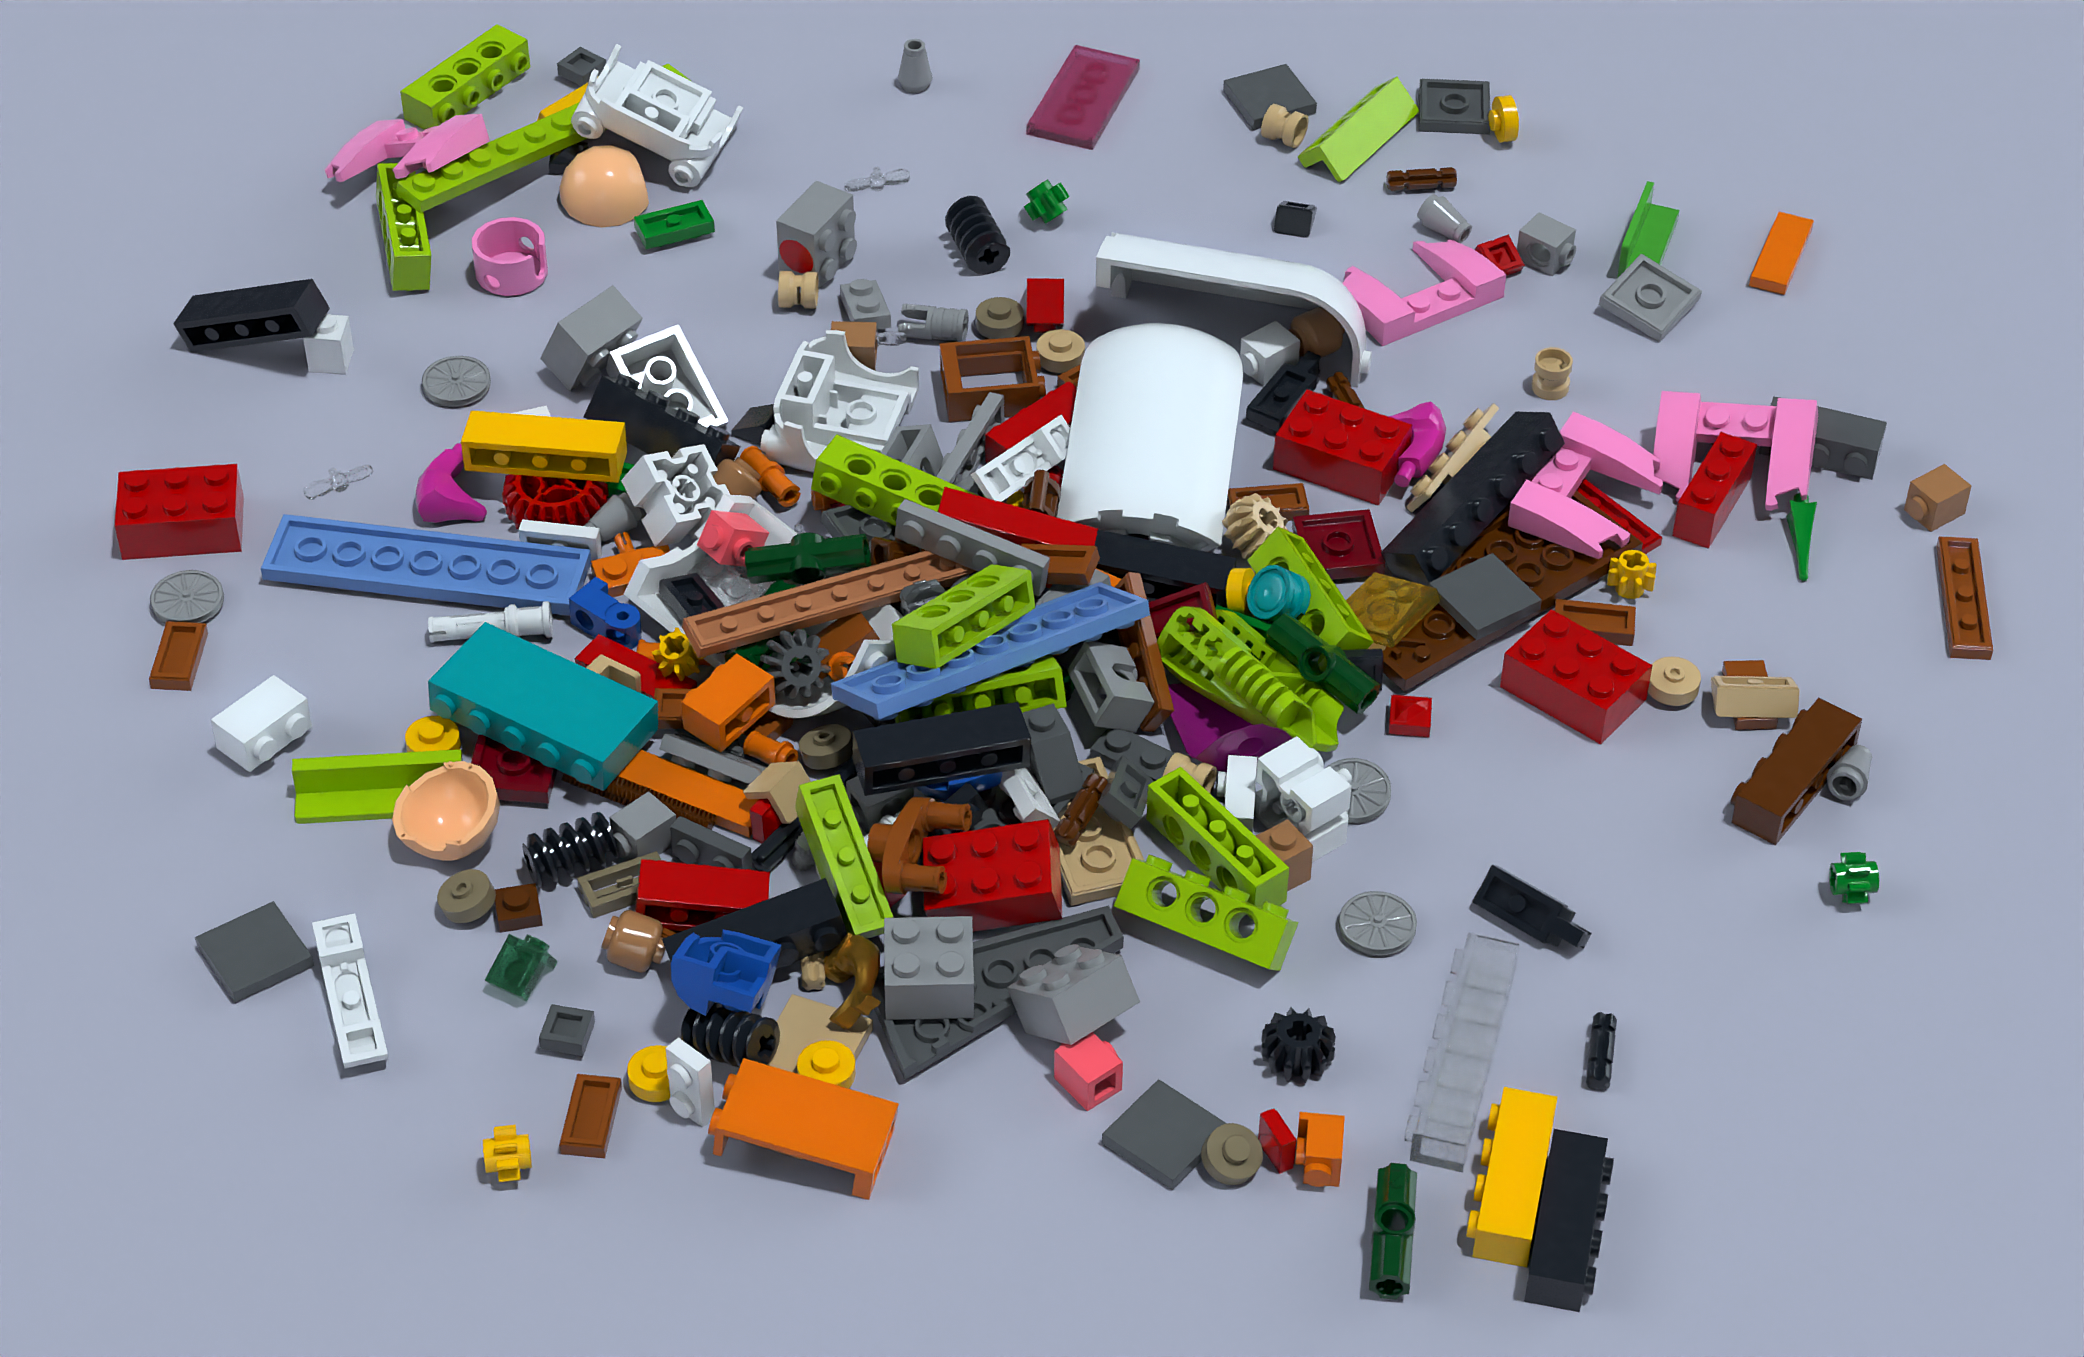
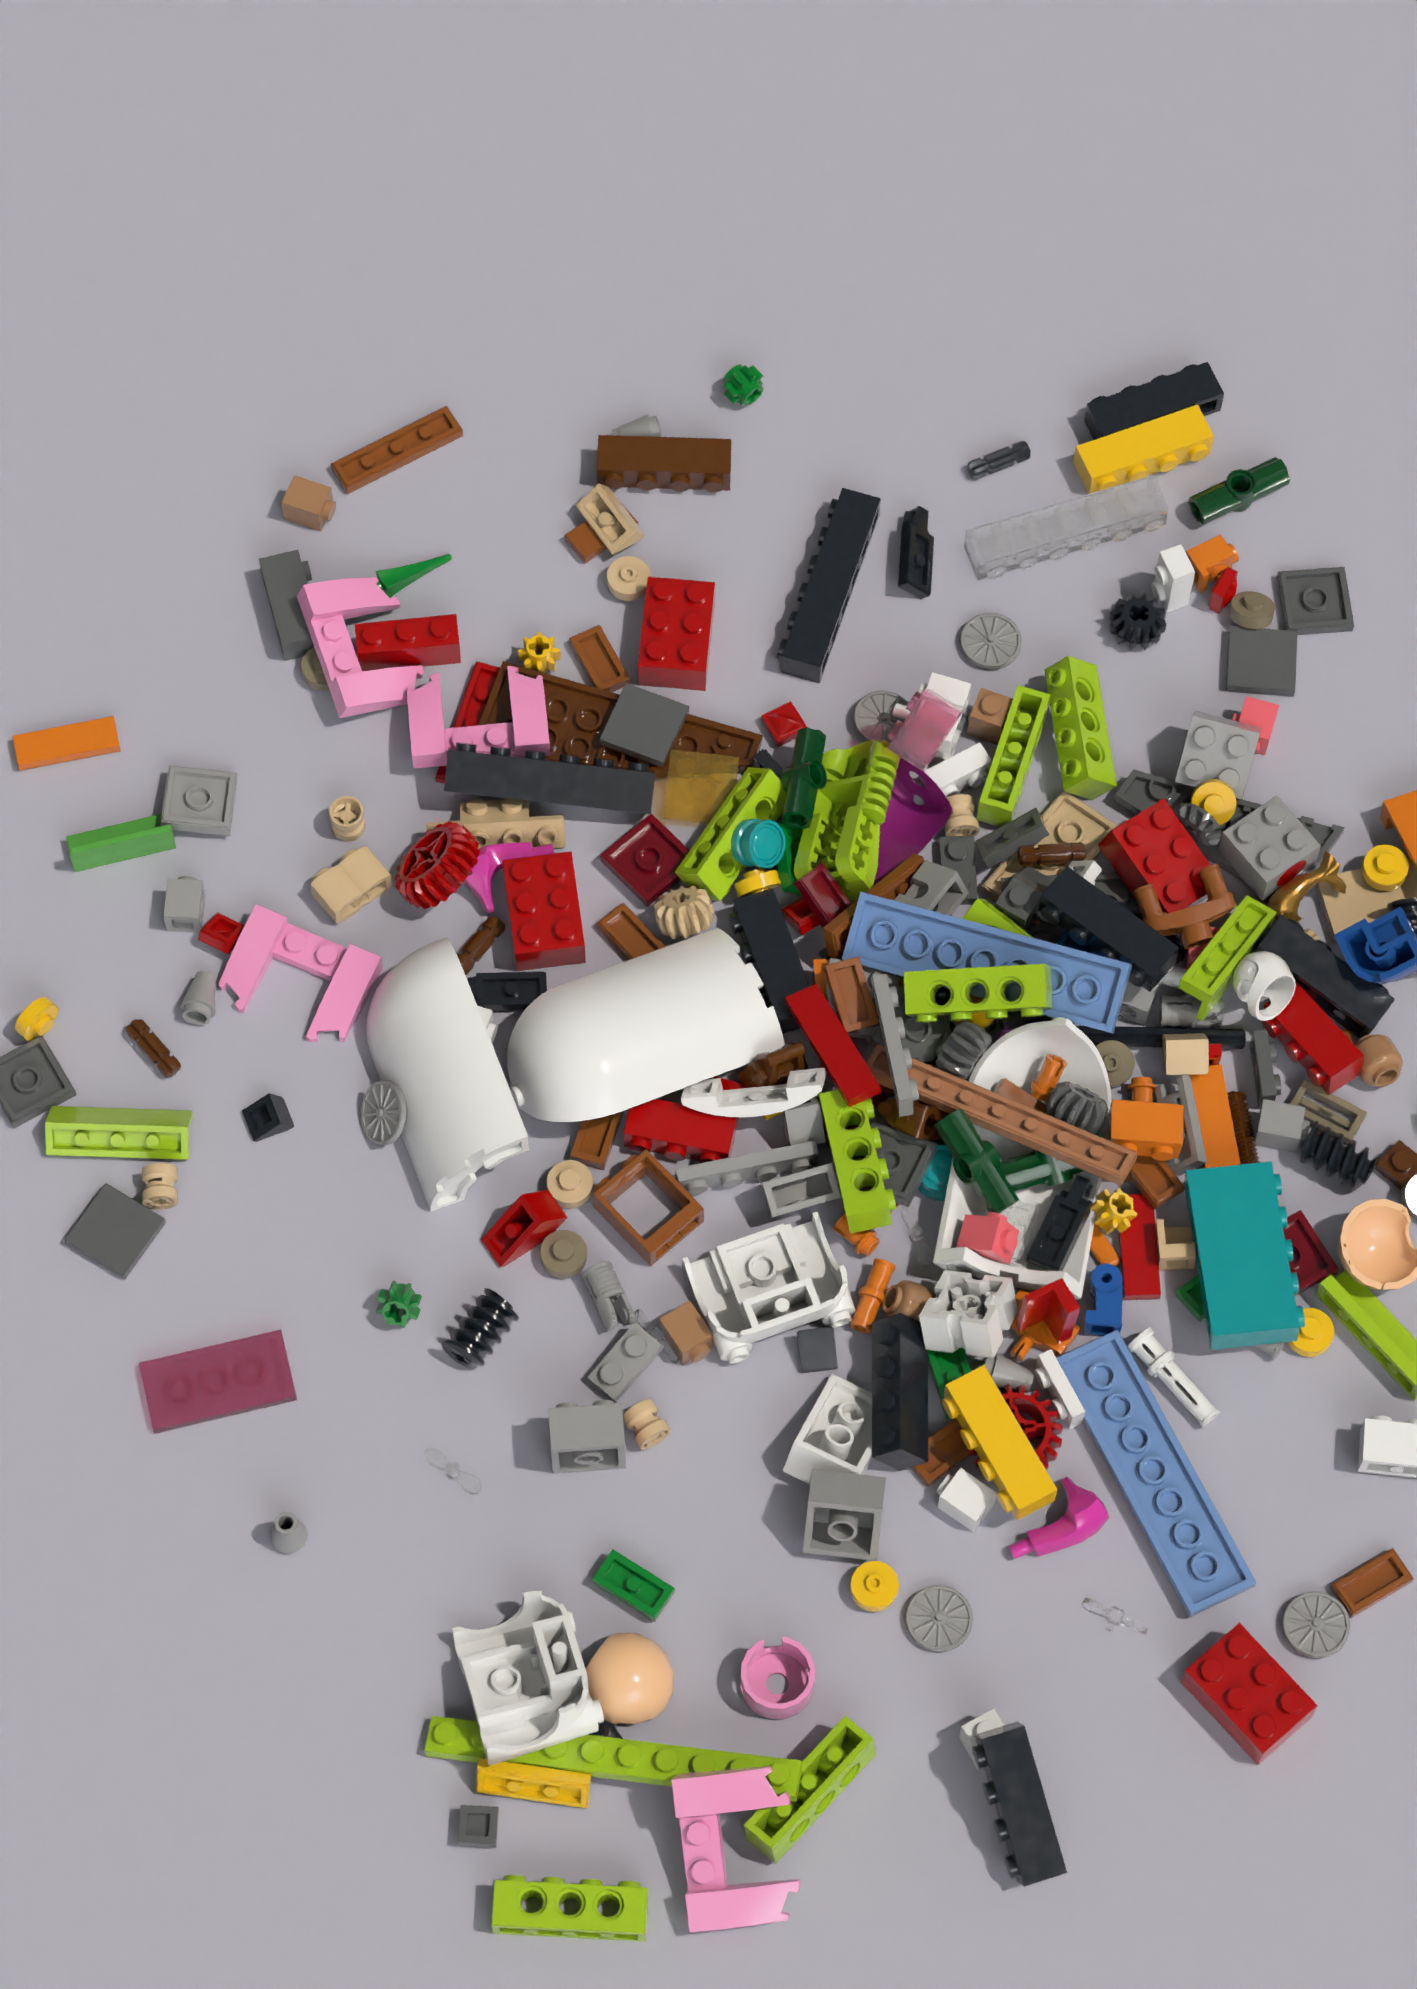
camera: 125 degrees left, 20 degrees up
(521, 351) = (874, 1586): none -> yellow wheel
(619, 534) = (1052, 1305): none -> red panel
(789, 860) = (1264, 976): none -> white helmet
(1005, 932) = (1198, 823): none -> dark grey gear
(1020, 954) = (1216, 799): none -> yellow wheel
(1200, 1229) = (1315, 600): none -> dark grey tile
(1282, 725) = (924, 728): none -> clear pink brick
(1318, 1079) = (1173, 578): none -> white piece
(1443, 383) = (437, 865): none -> red gear
(1481, 347) = (350, 884): none -> tan brick
(1545, 823) = (829, 586): none -> black brick

